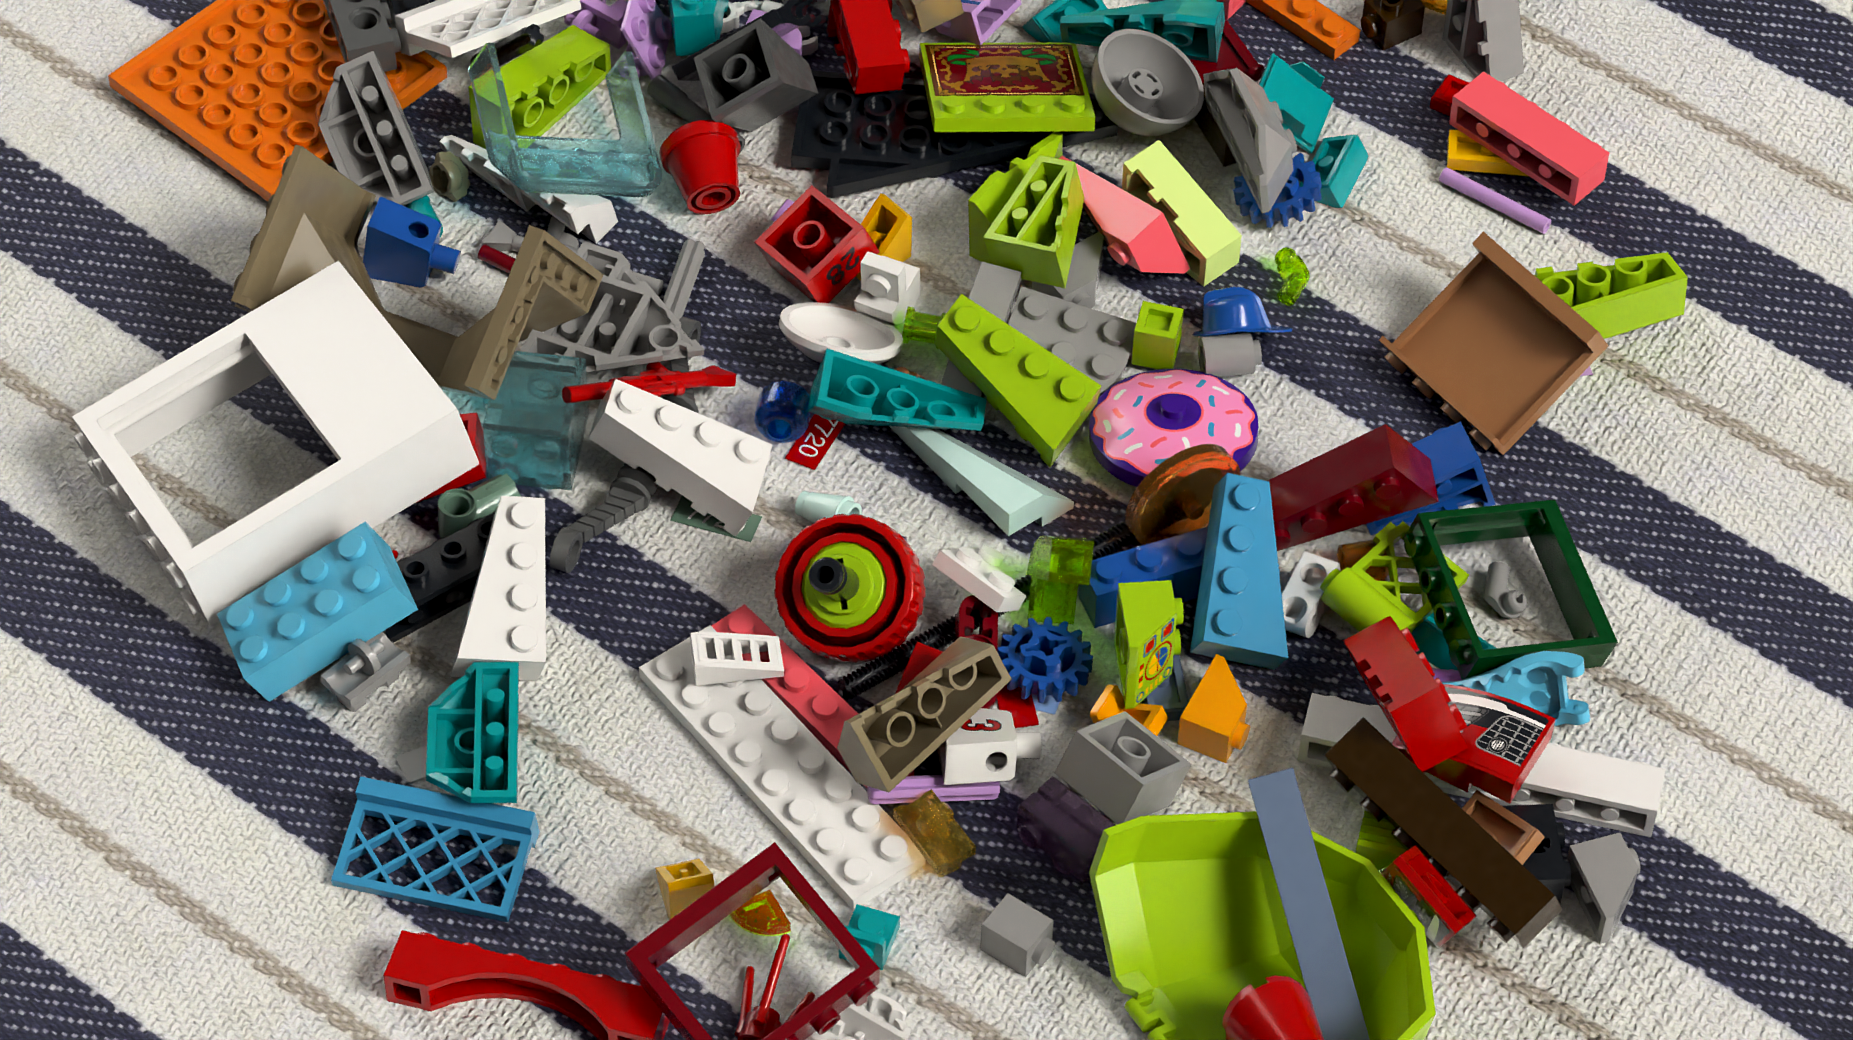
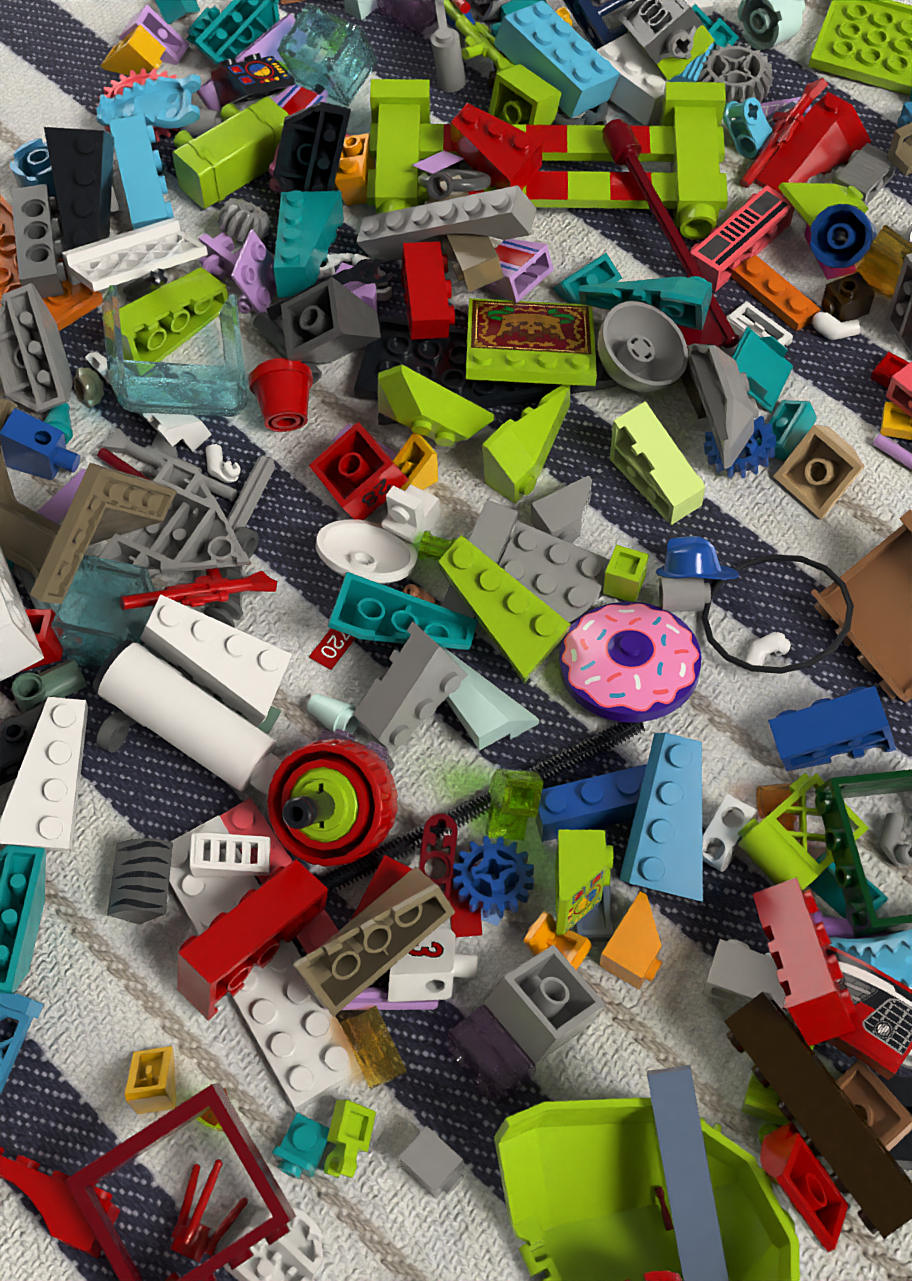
camera: 10 degrees right, 10 degrees up
(451, 302) = (59, 504): none -> lavender sticker
(633, 692) = (140, 880): none -> dark grey brick
(642, 262) = (217, 468): none -> white arm
(664, 519) = (187, 717): none -> white piece
(774, 730) = (247, 936): none -> red wedge
(782, 411) = (309, 618): clear blue head -> none
(890, 162) = (428, 407): none -> lime wedge
(923, 468) = (410, 689): none -> light grey wedge
(923, 915) = (351, 1133): none -> lime plate
(983, 575) = (446, 792): white plate -> none
(1039, 223) = (538, 469): lime wedge -> none
(1131, 227) = (615, 477): coral wedge -> none
(1178, 493) = (626, 734): clear orange piece -> none
(1280, 956) = (664, 1209): none -> dark red piece
(1288, 51) = (740, 322): none -> white tile
(1293, 273) = (745, 521): clear neon green arm -> none
(1329, 406) = (770, 643): none -> white arm
(1351, 487) = (771, 741): dark red wedge -> none
(1361, 420) = (780, 670): none -> black piece
(1376, 209) = (820, 469): none -> tan slope
(1378, 52) = (833, 328): none -> white arm

